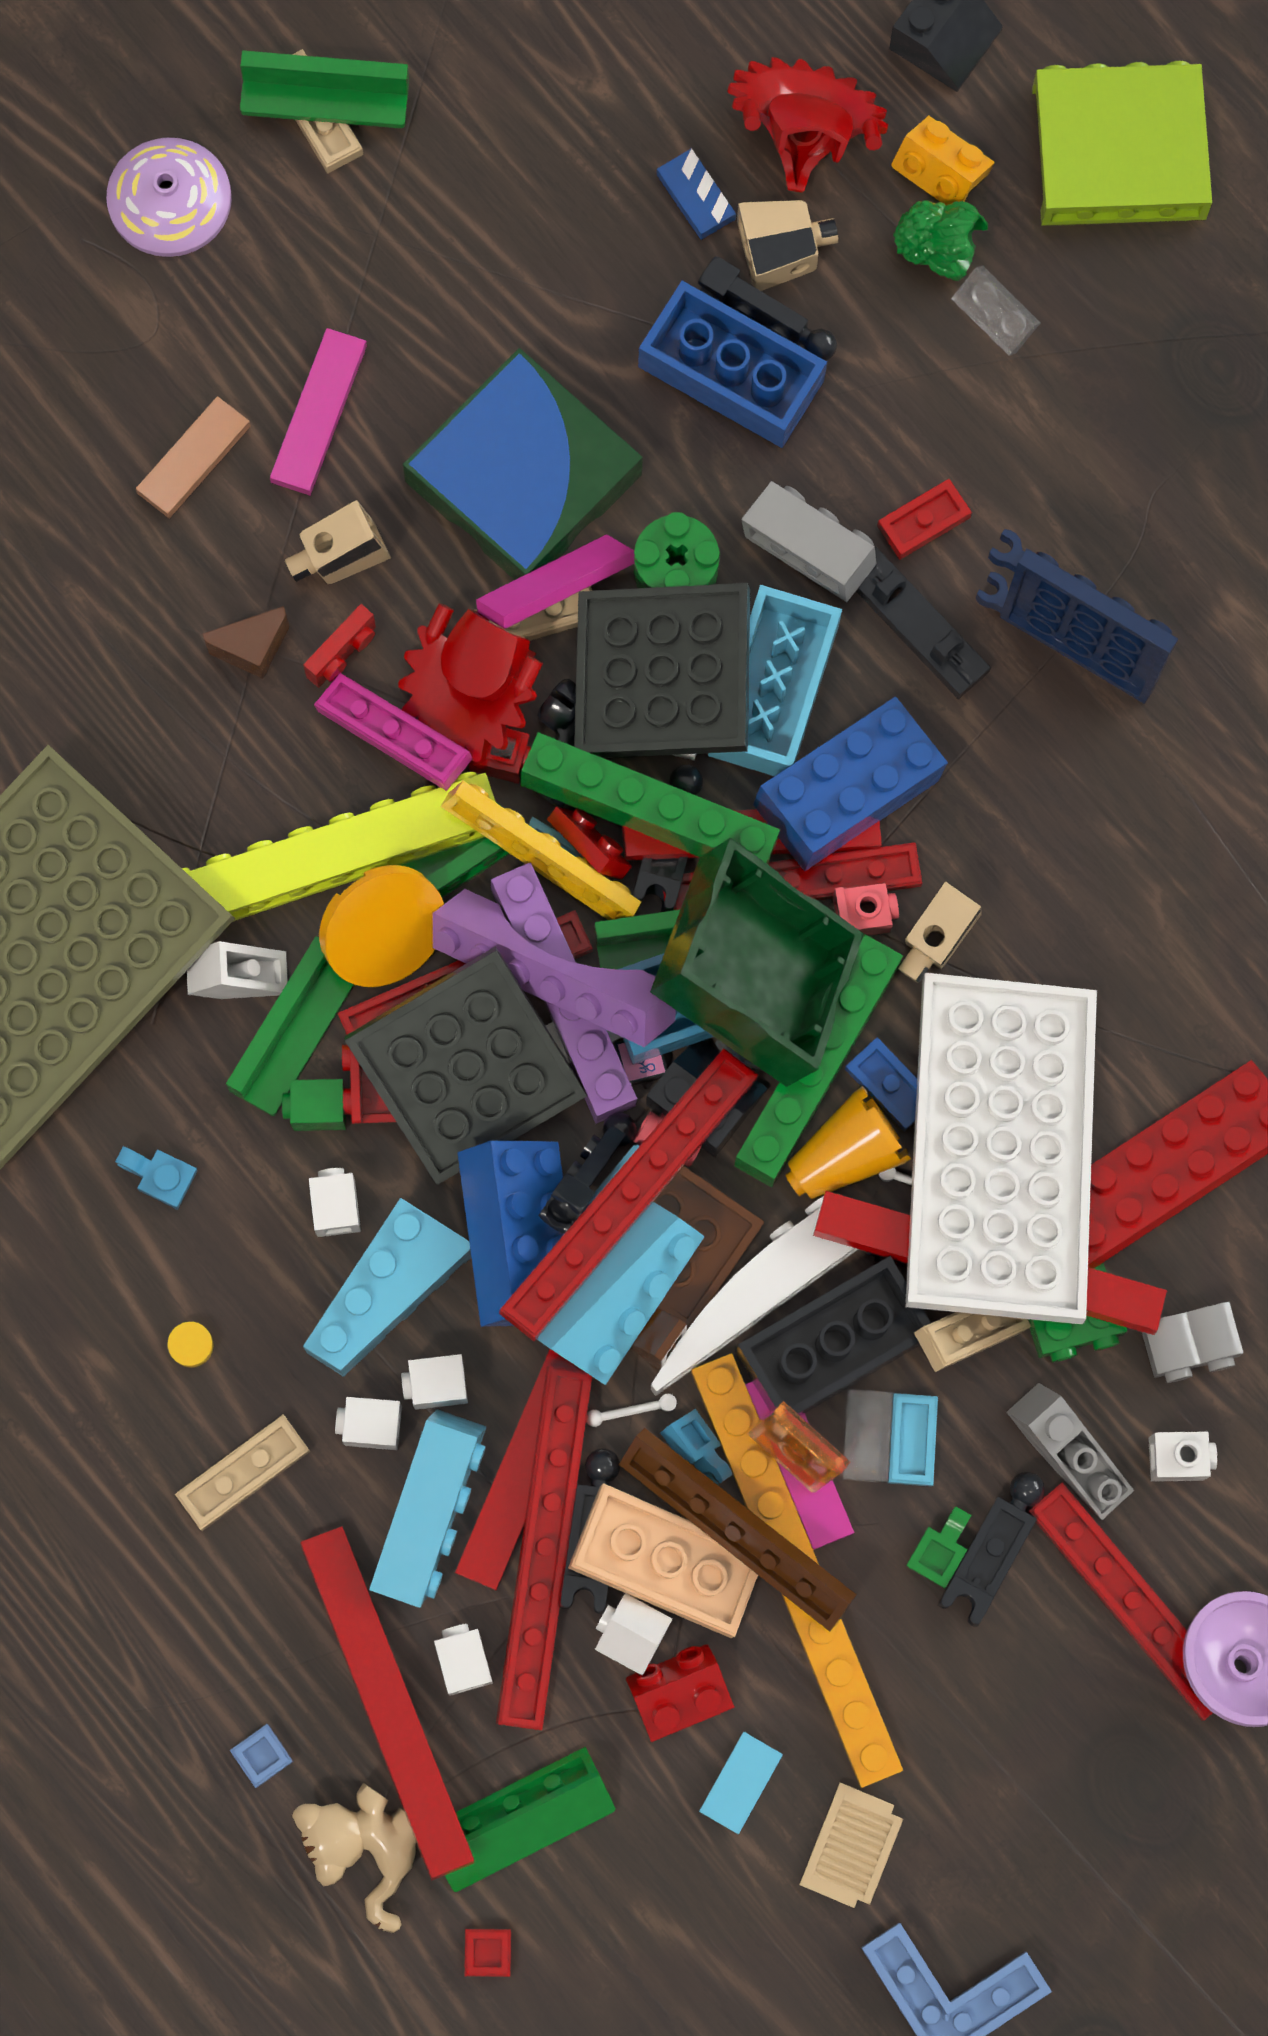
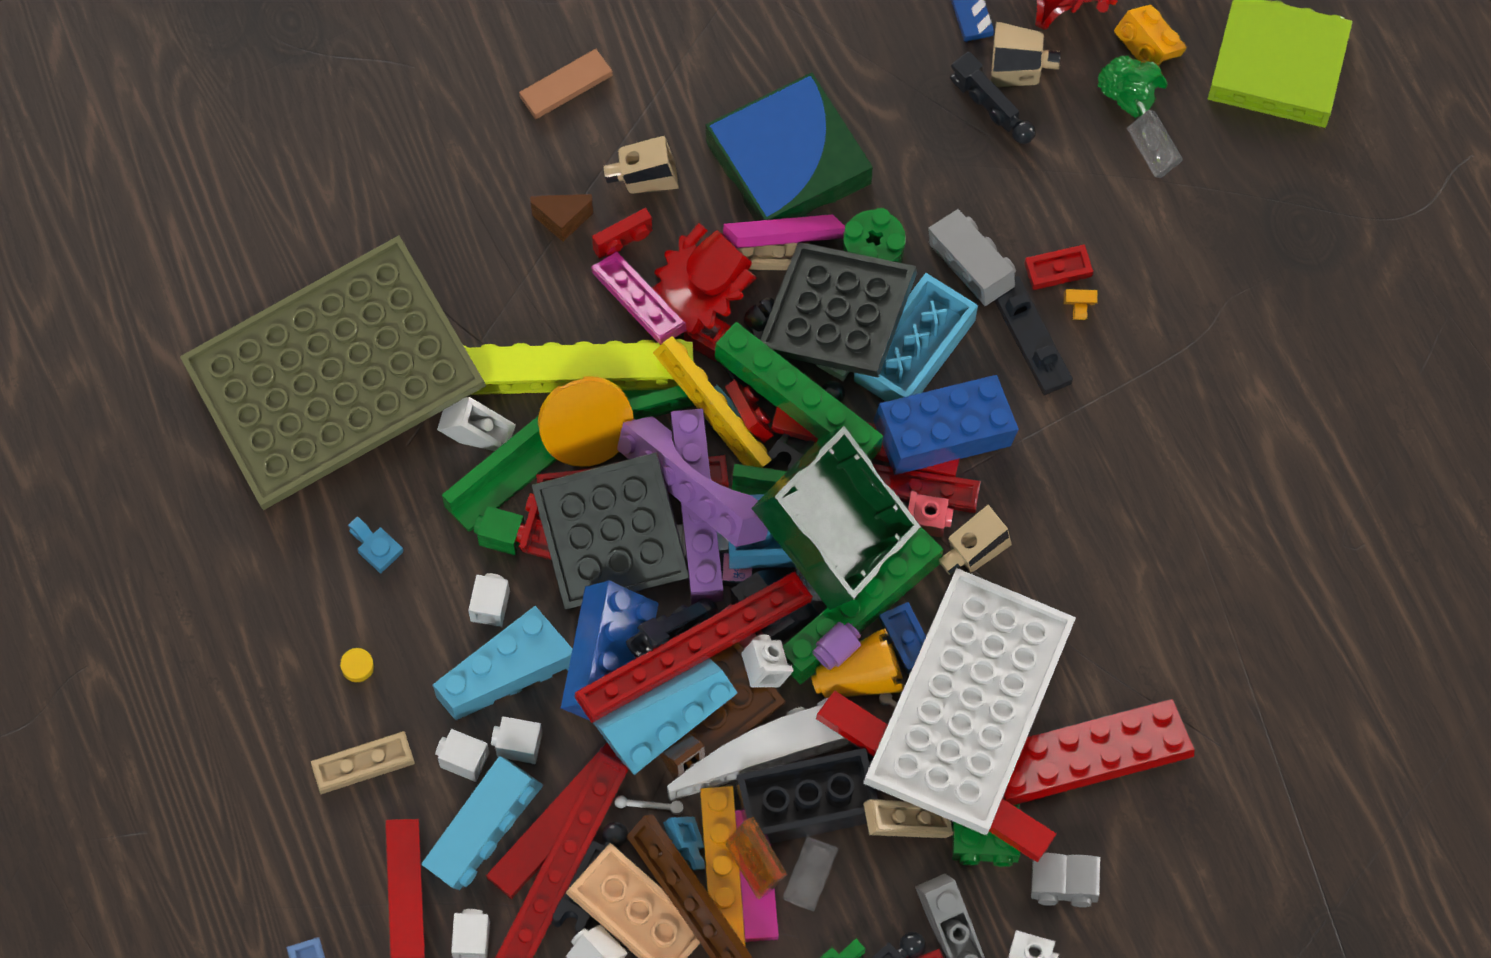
camera: 20 degrees right, 10 degrees down
(318, 411) = (661, 78): dark pink tile -> none
(725, 1181) = (766, 662): none -> white brick
(732, 364) = (957, 125): blue brick -> none
(811, 1131) = (837, 645): none -> medium lavender brick
(912, 1439) = (842, 886): medium azure tile -> none
(967, 559) = (1080, 300): none -> light orange tile
(1078, 619) = (1141, 358): dark blue plate -> none

